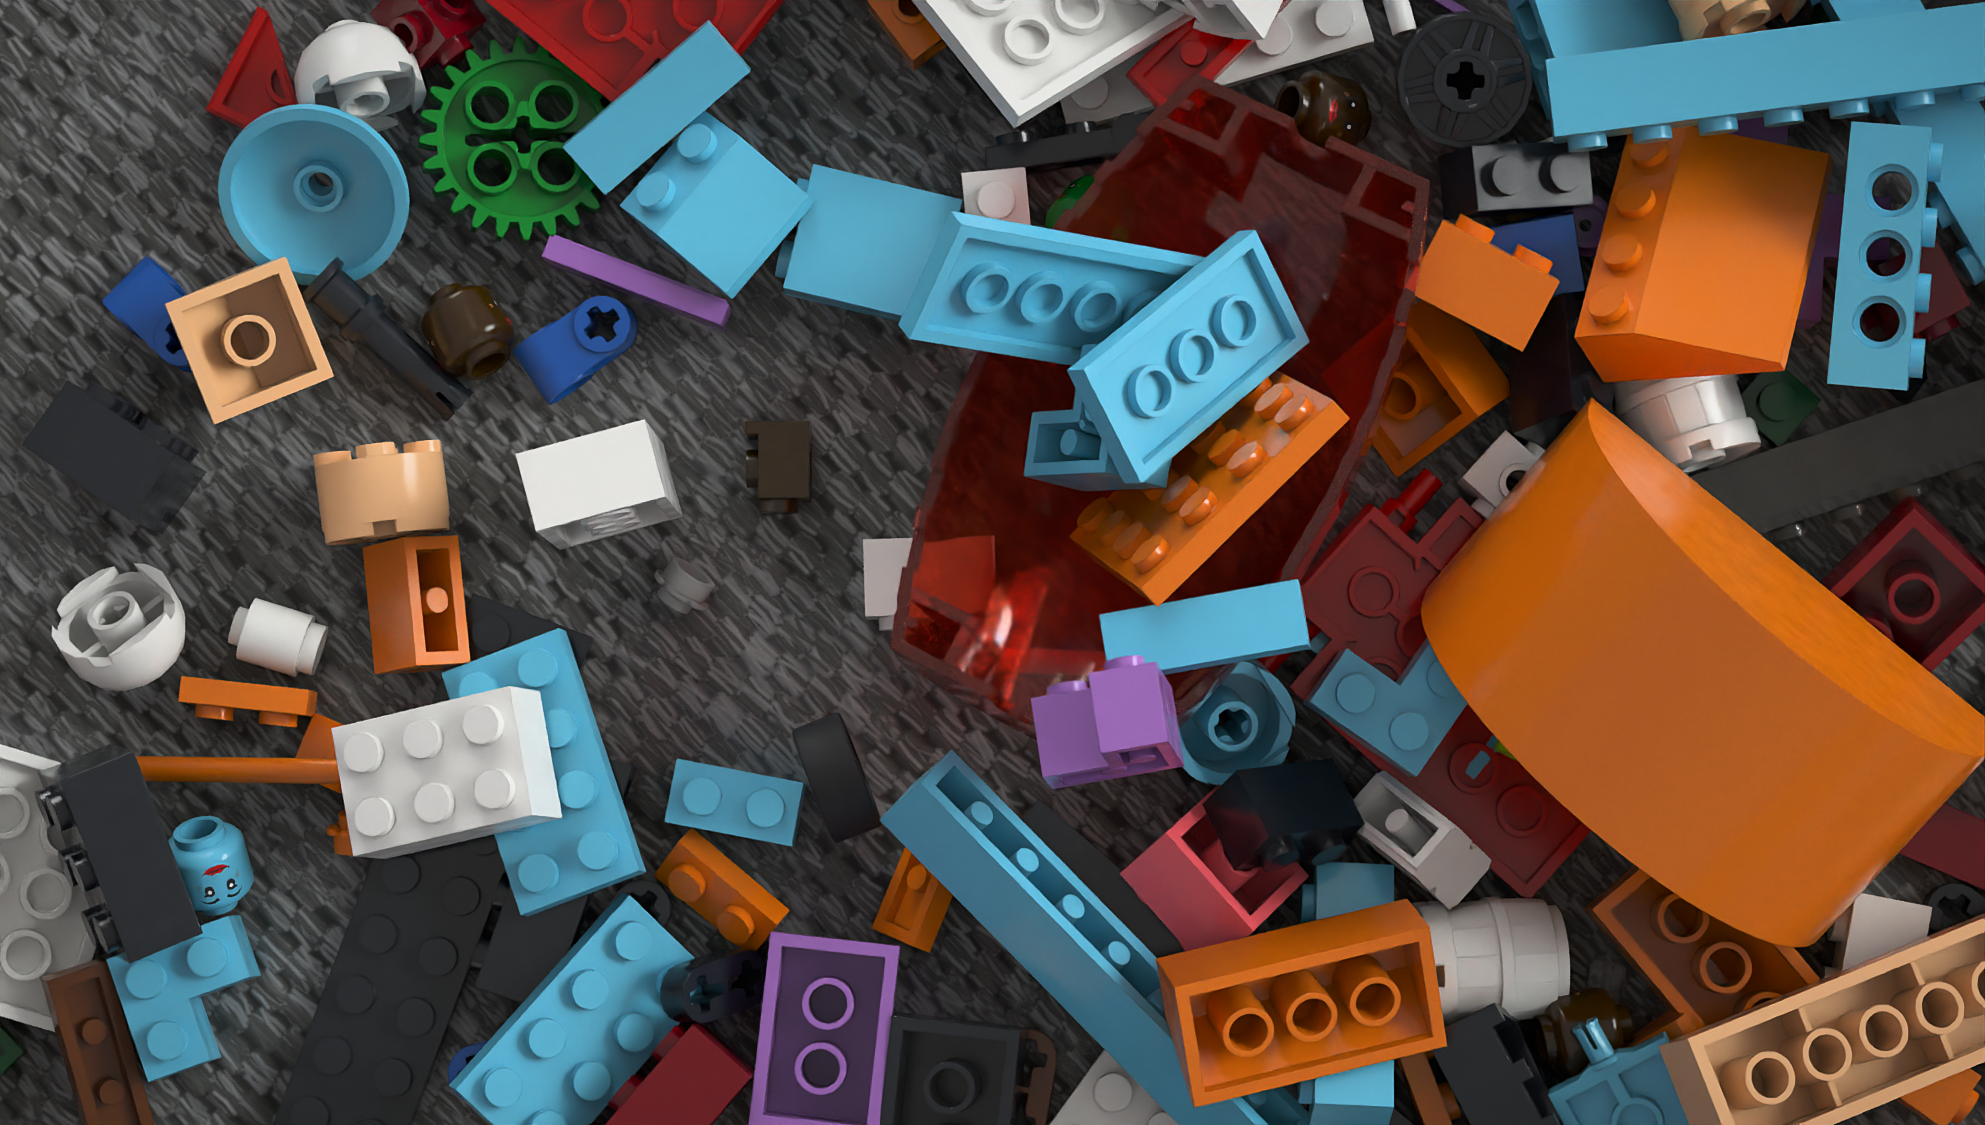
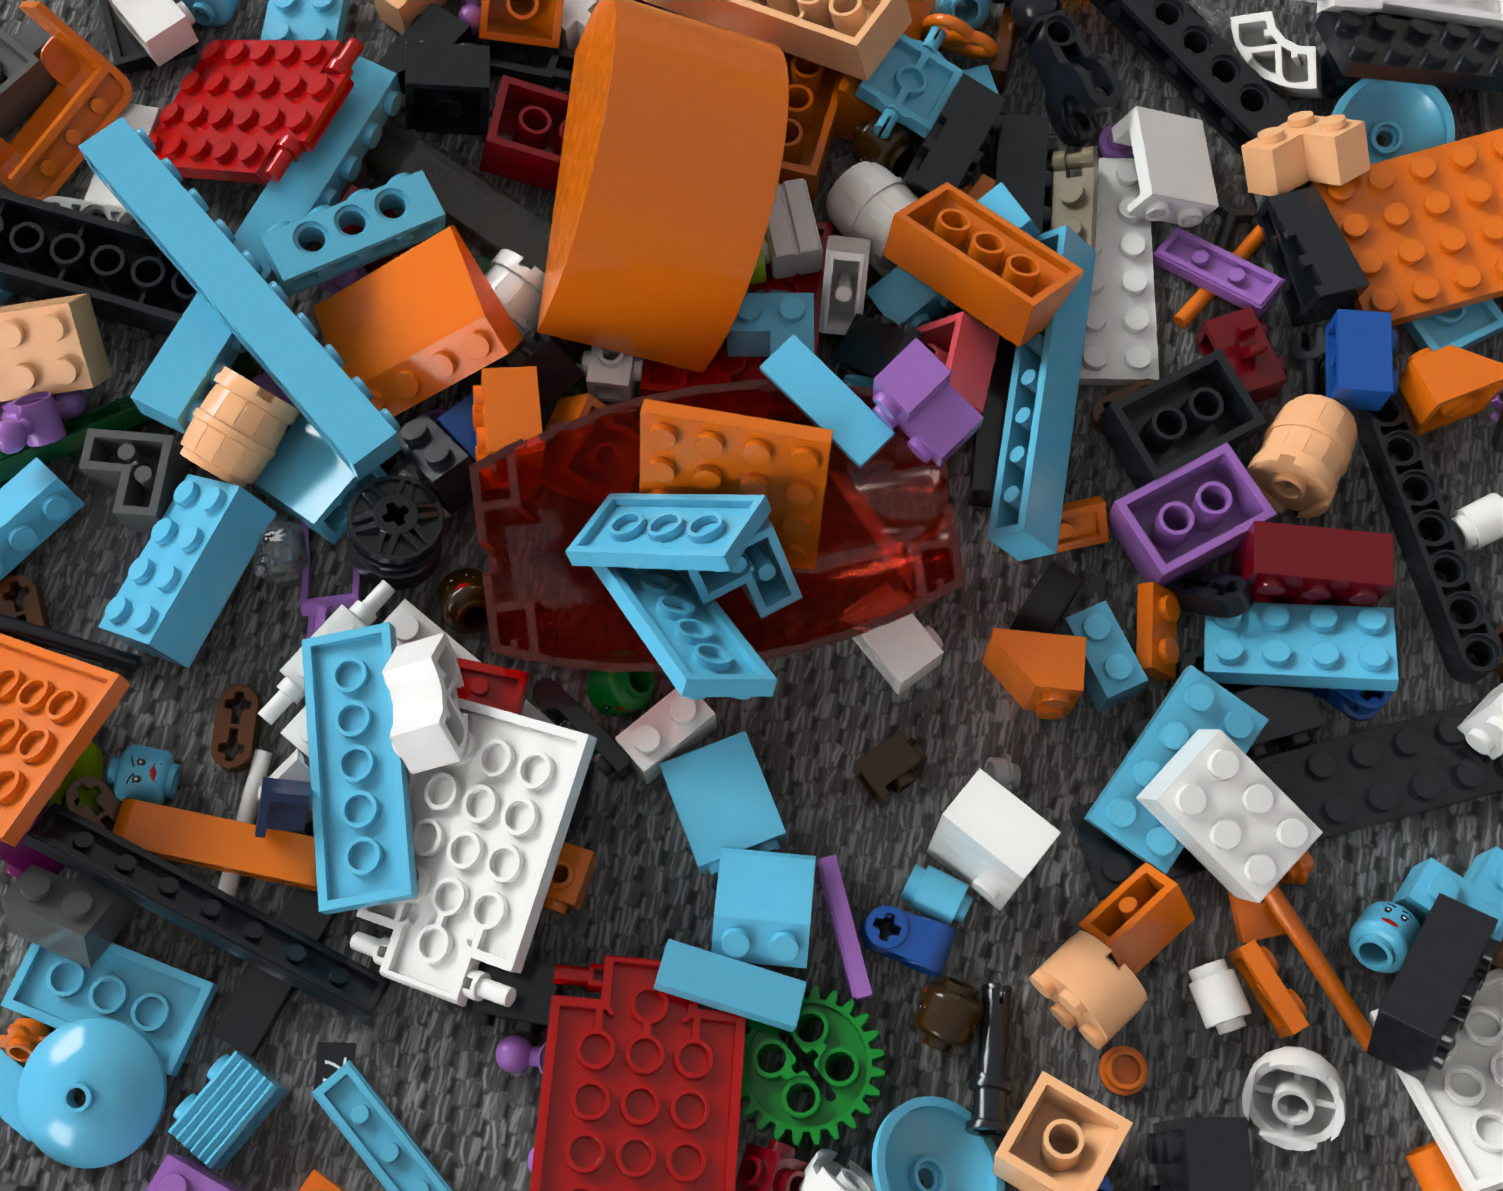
camera: 125 degrees left, 15 degrees down
(279, 478) = (1123, 1070): none -> orange plate
(602, 406) = (937, 894): none -> medium azure brick
(761, 708) = (1038, 669): none -> orange slope
(1537, 829) = (792, 233): none -> white brick

